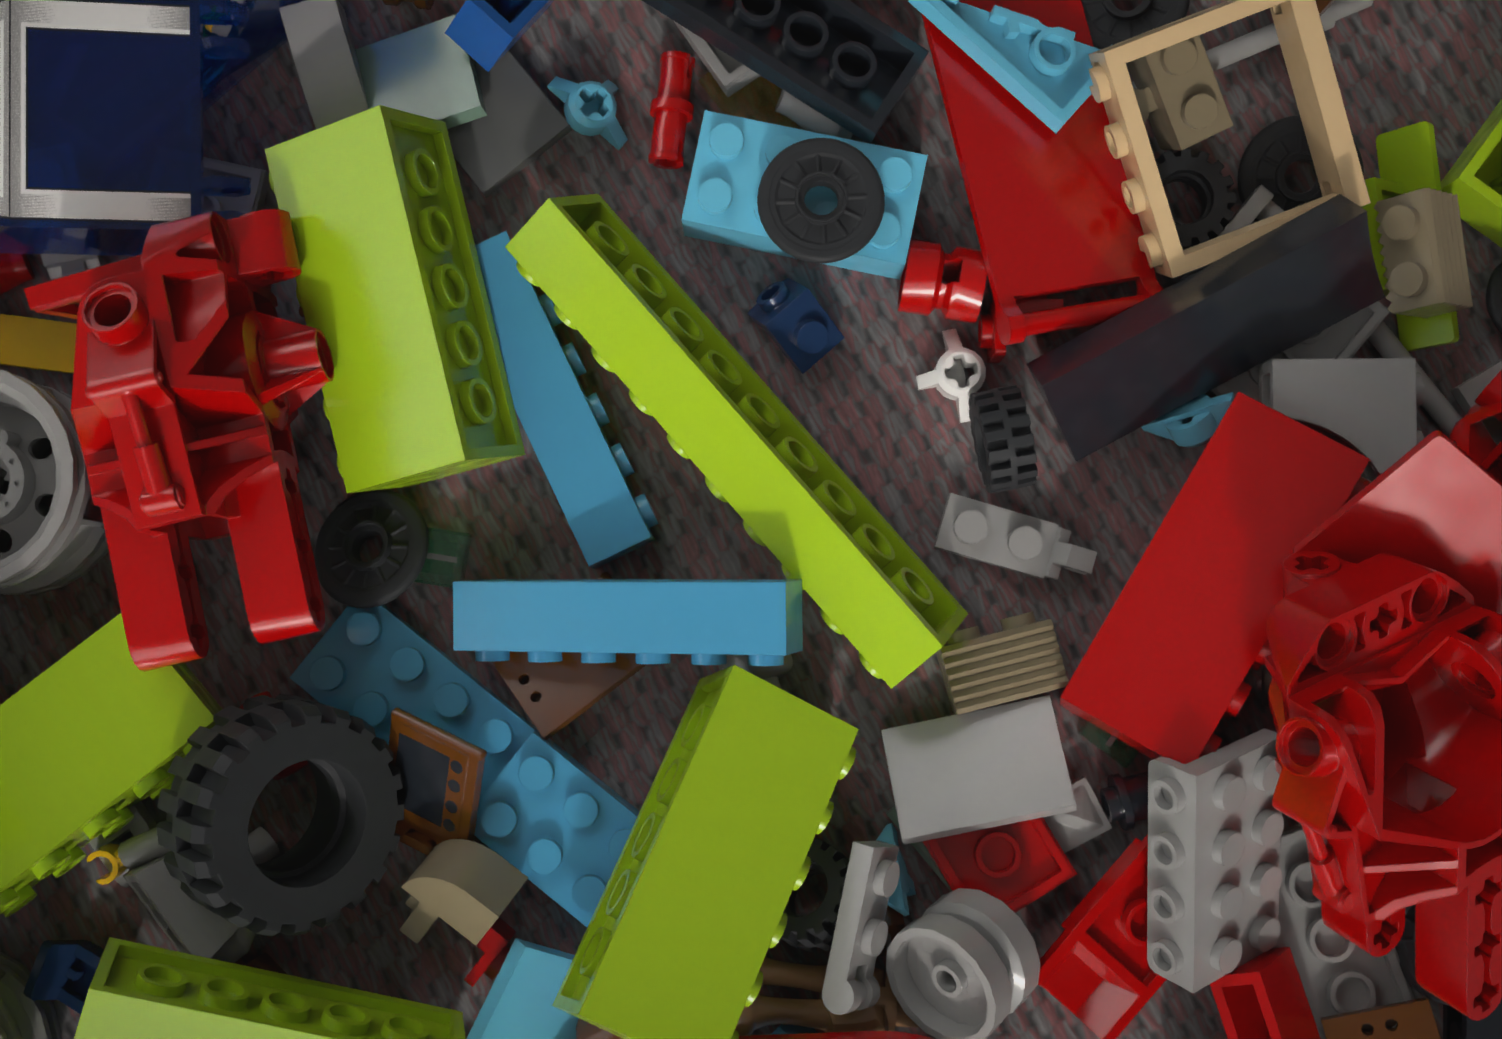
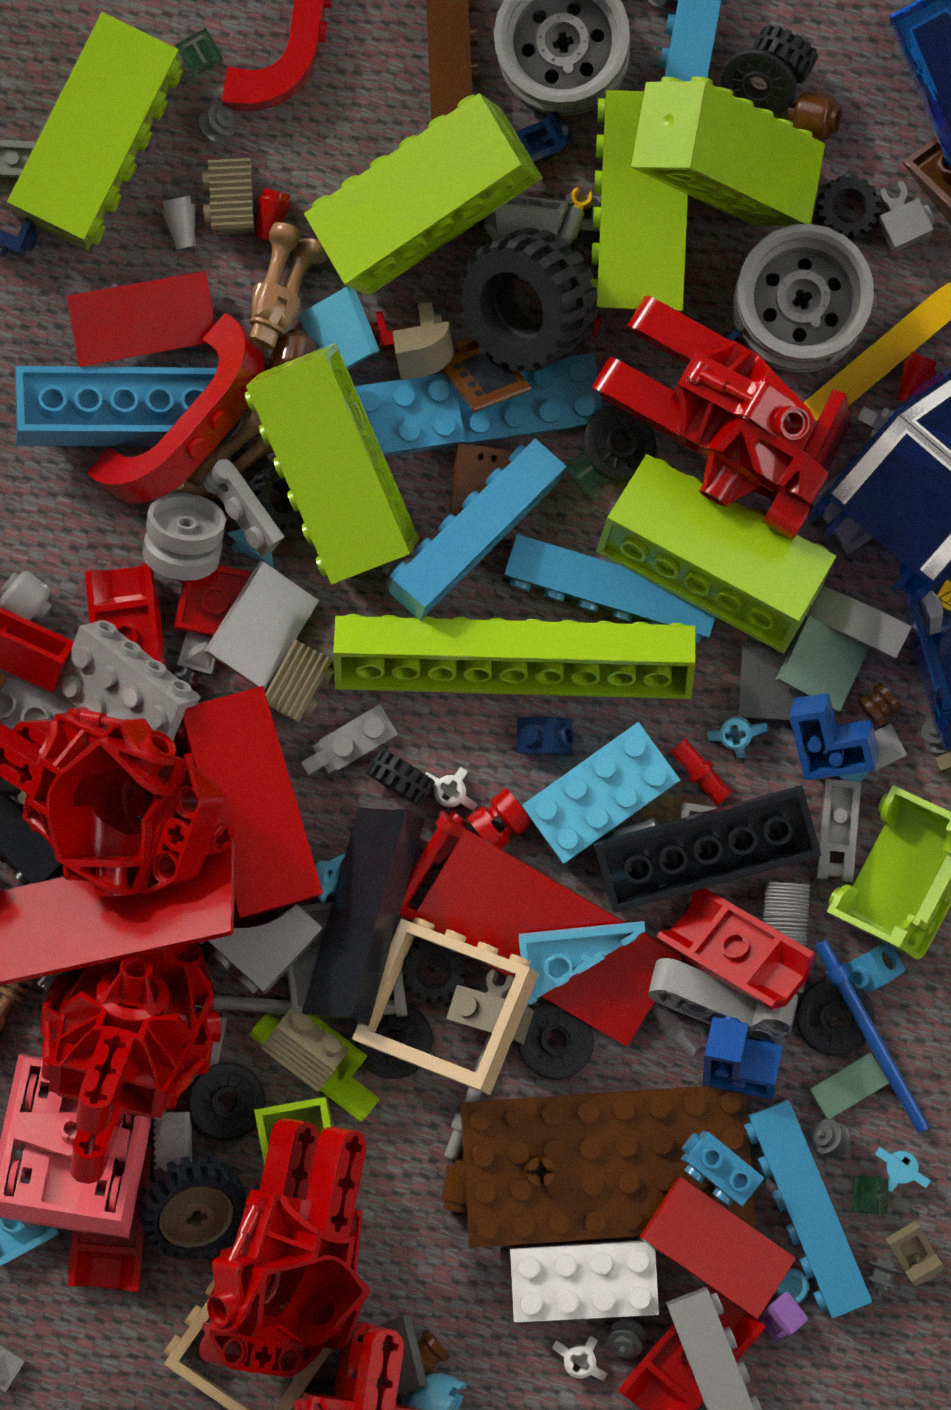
camera: 135 degrees right, 0 degrees up
(811, 235) = (591, 767): black wheel -> none

